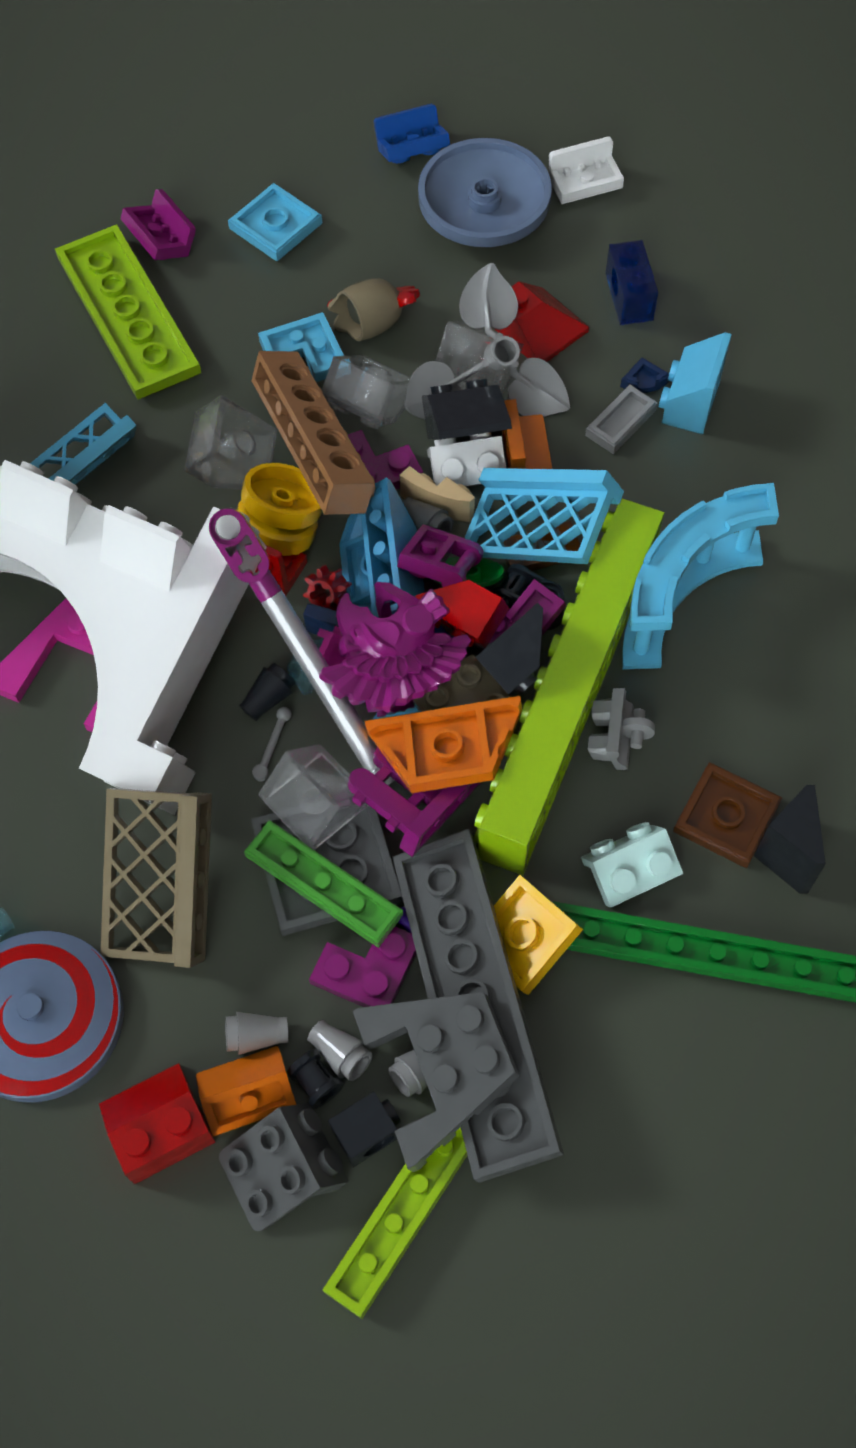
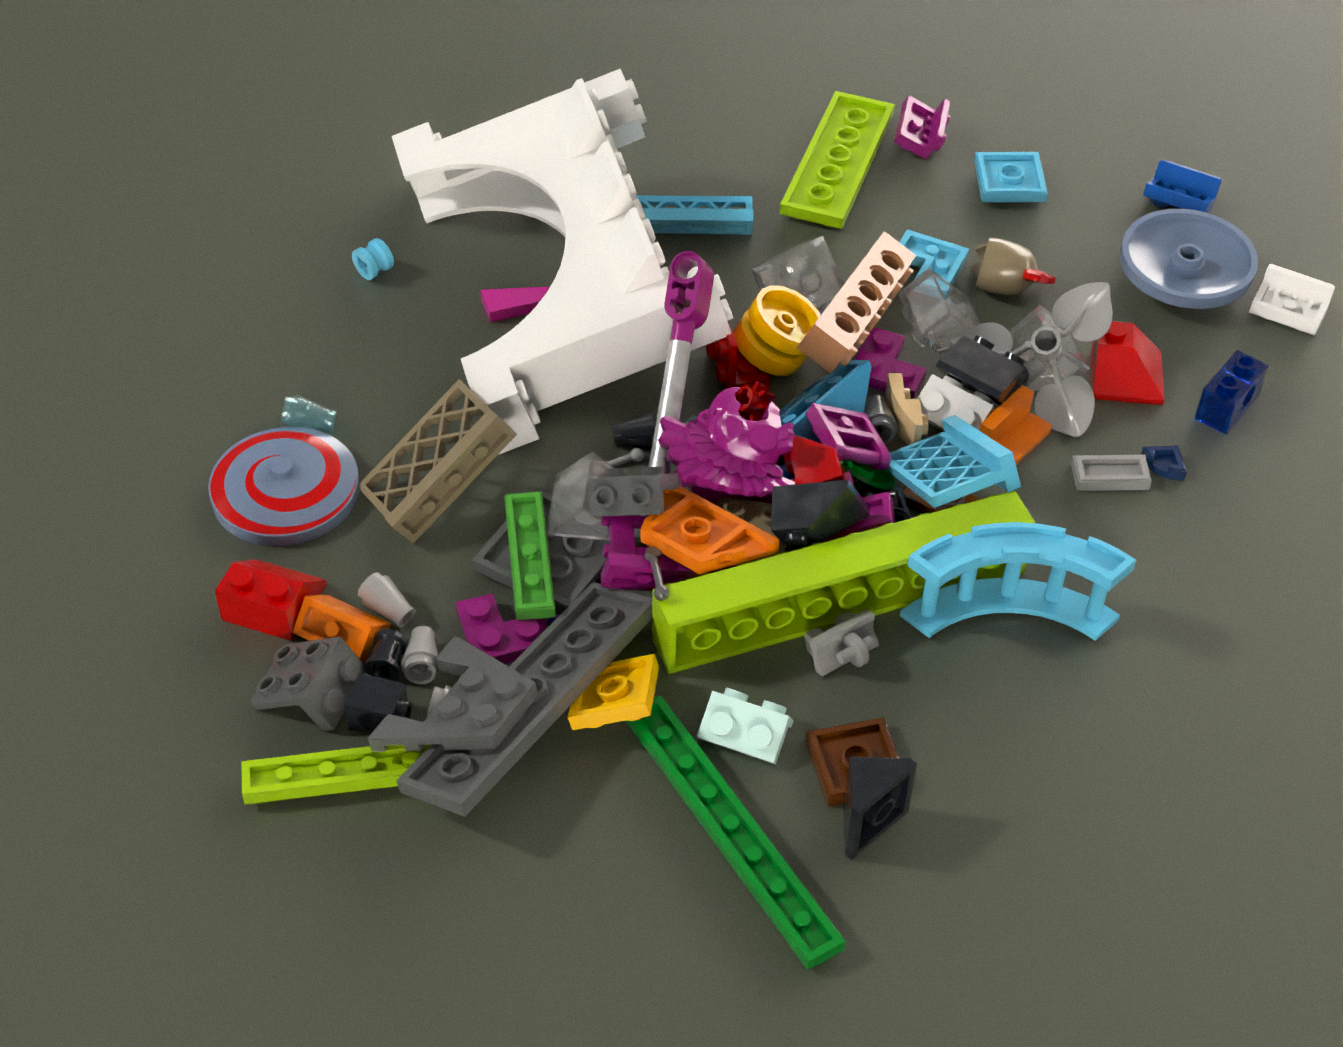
camera: 45 degrees right, 15 degrees down
(364, 759) = (630, 494): none -> dark grey bracket
(437, 797) = (653, 555): none -> dark grey hinge
(694, 383) = (1193, 489): medium azure slope -> none

